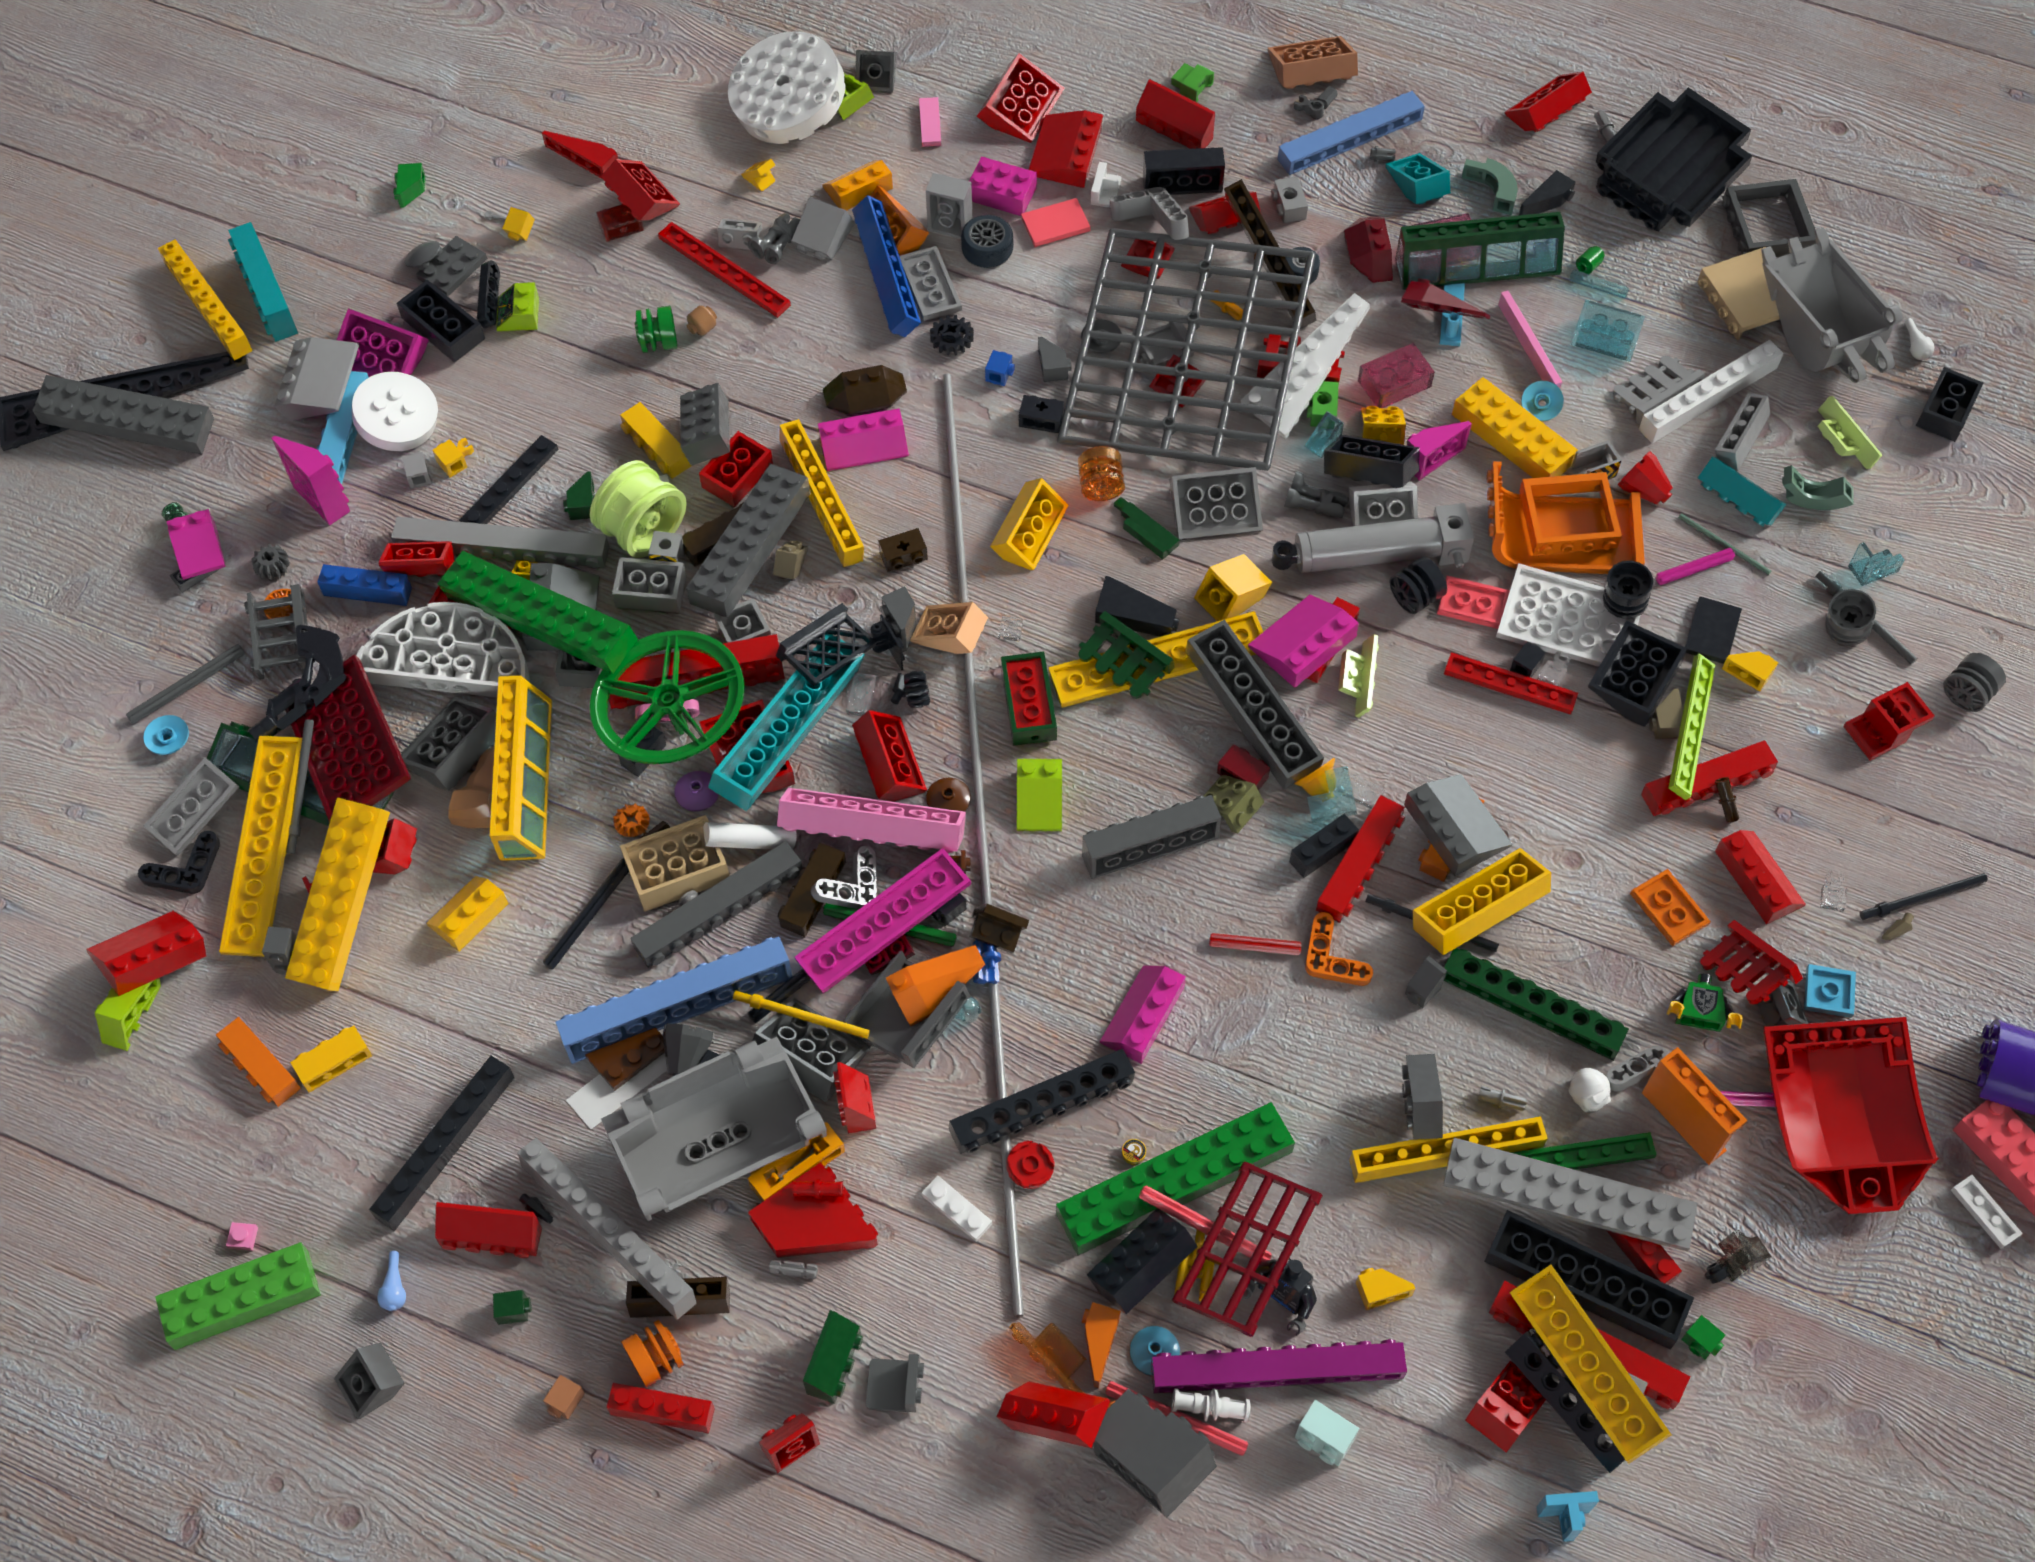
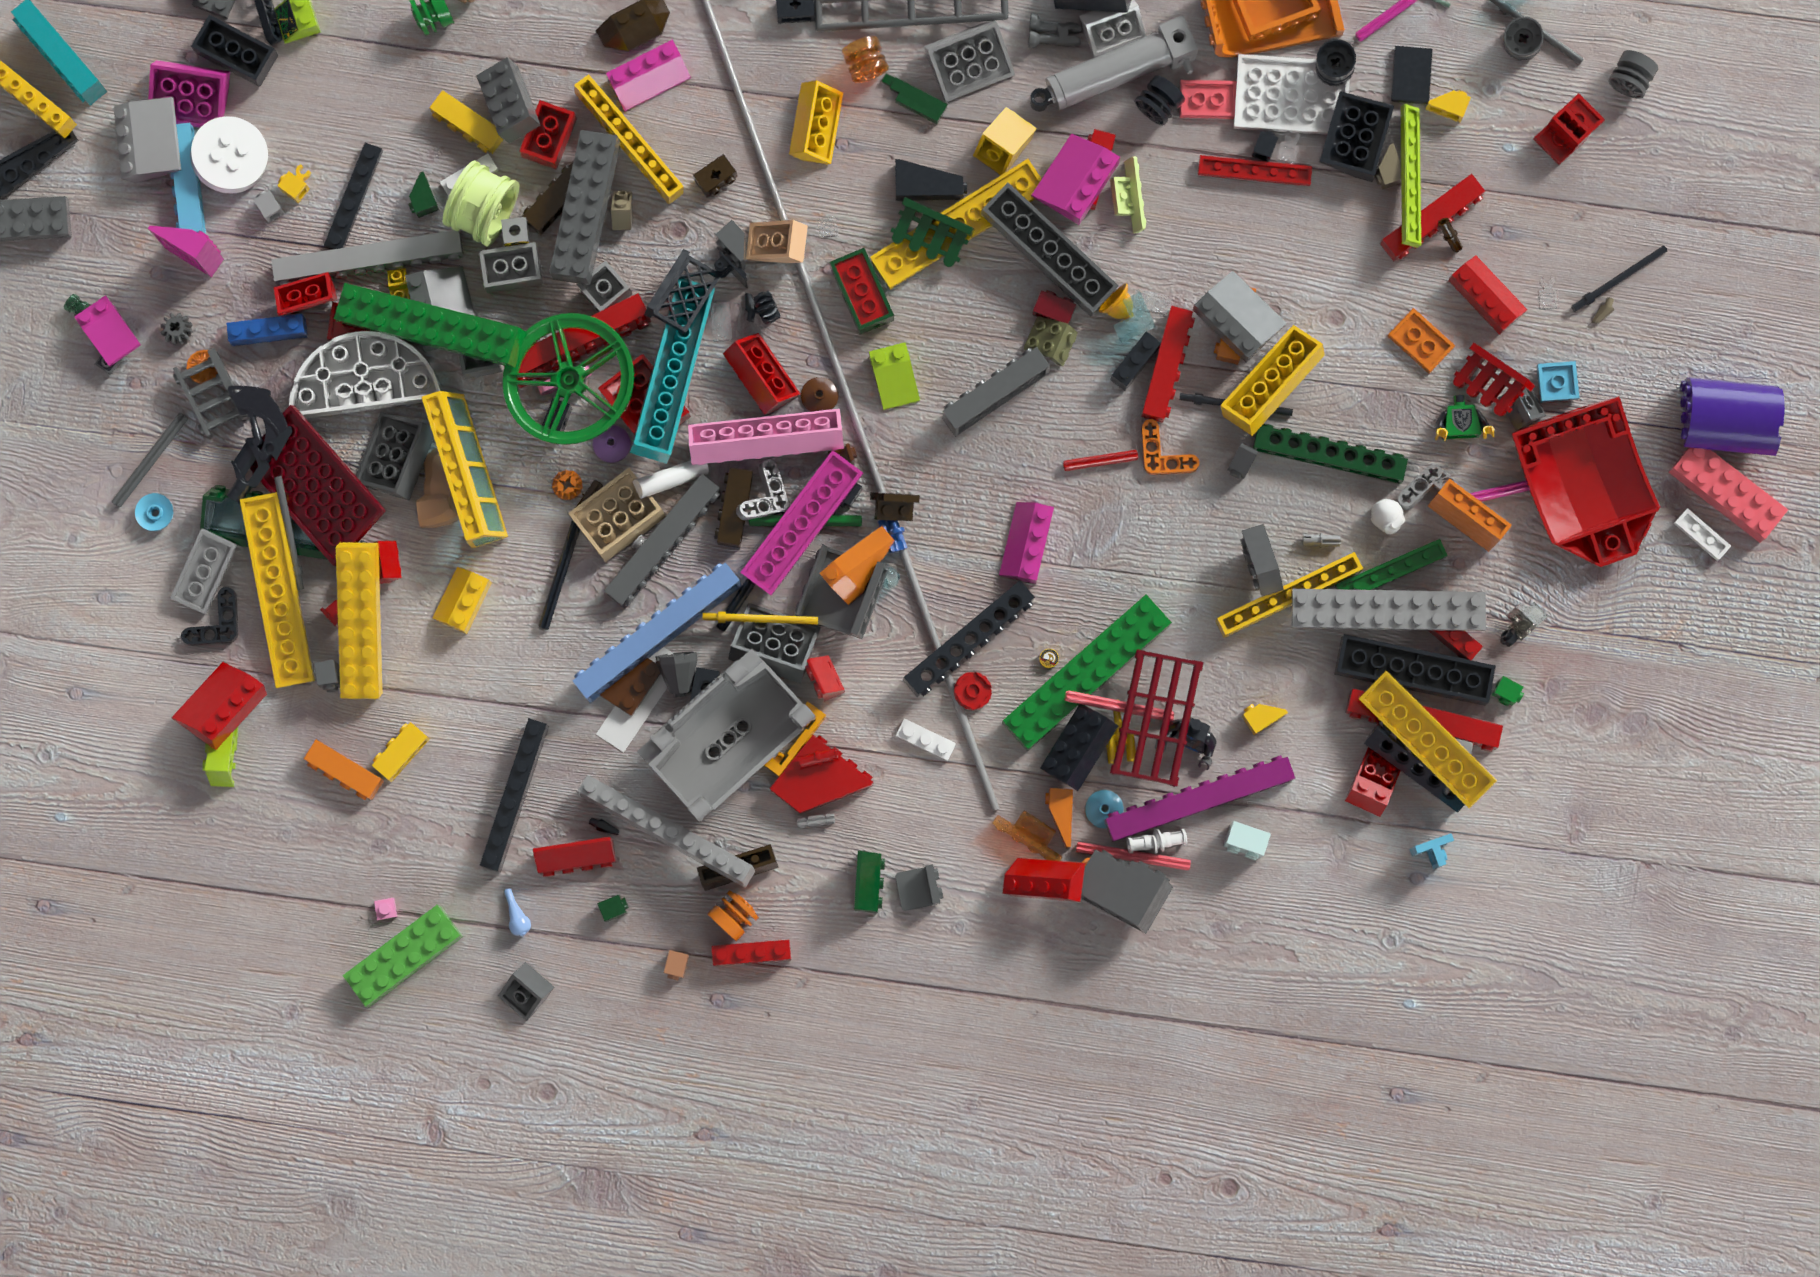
camera: 15 degrees left, 20 degrees up
(790, 1441) = (854, 951): red slope -> none
(881, 960) = (810, 553): dark red slope -> none

